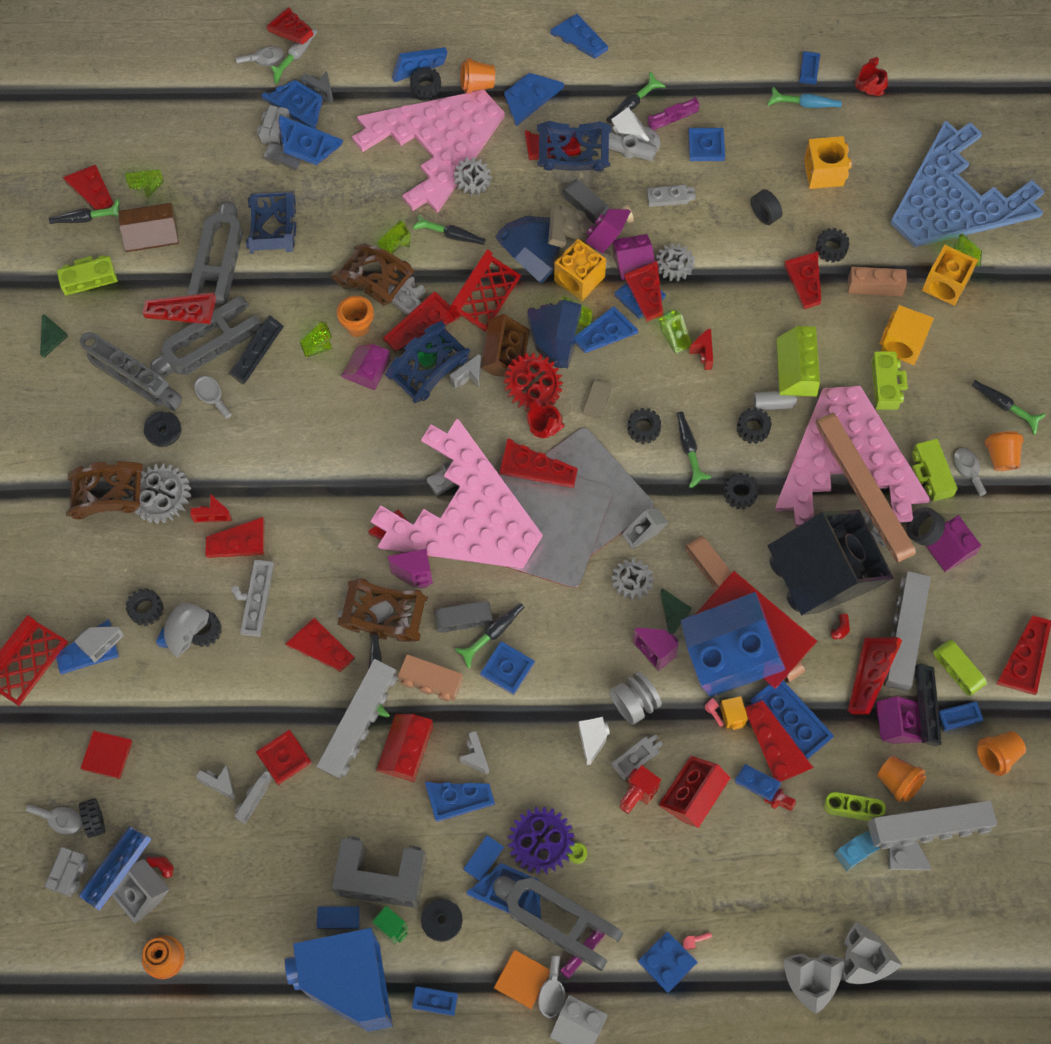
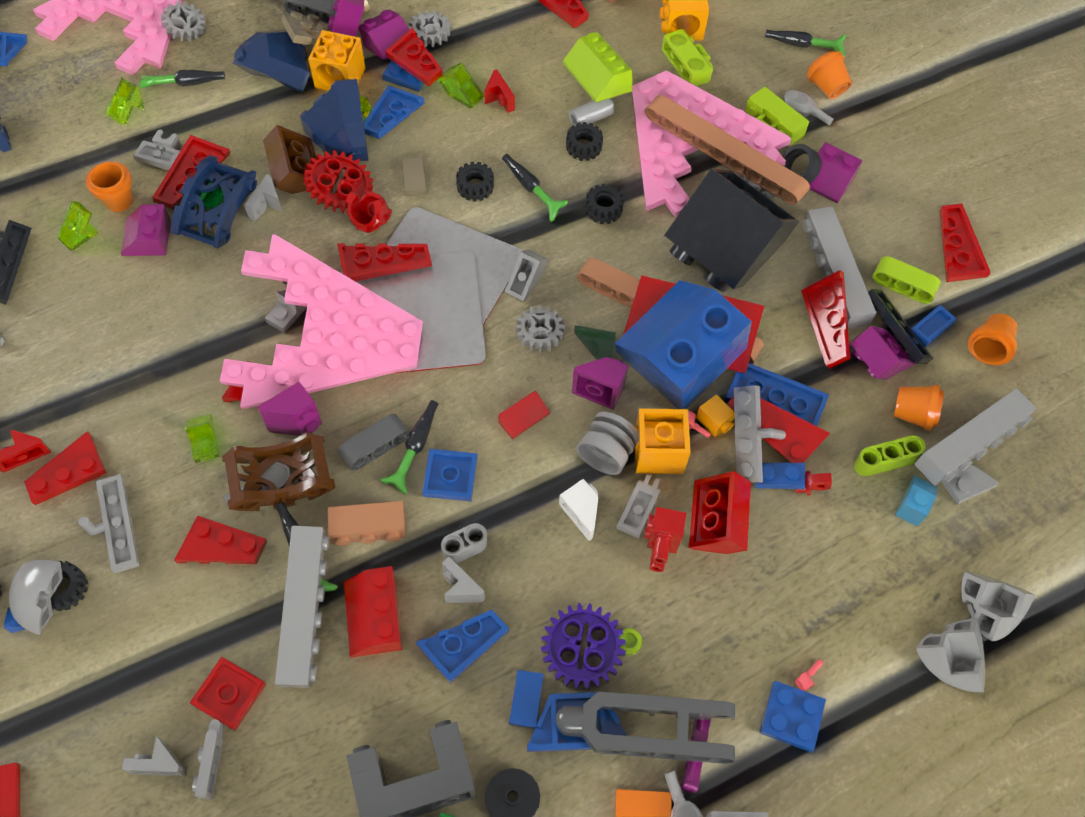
camera: 30 degrees left, 5 degrees down
(341, 557) = (202, 438): none -> clear neon green slope
(349, 278) = (119, 147): reddish brown fence -> none
(471, 283) = (227, 117): red fence -> none
(492, 729) = (462, 539): none -> light grey beam
(585, 644) = (523, 415): none -> red slope
(676, 715) = (662, 441): none -> light orange brick
(748, 740) = (749, 433): none -> light grey plate
(843, 629) = (775, 289): red arm -> none

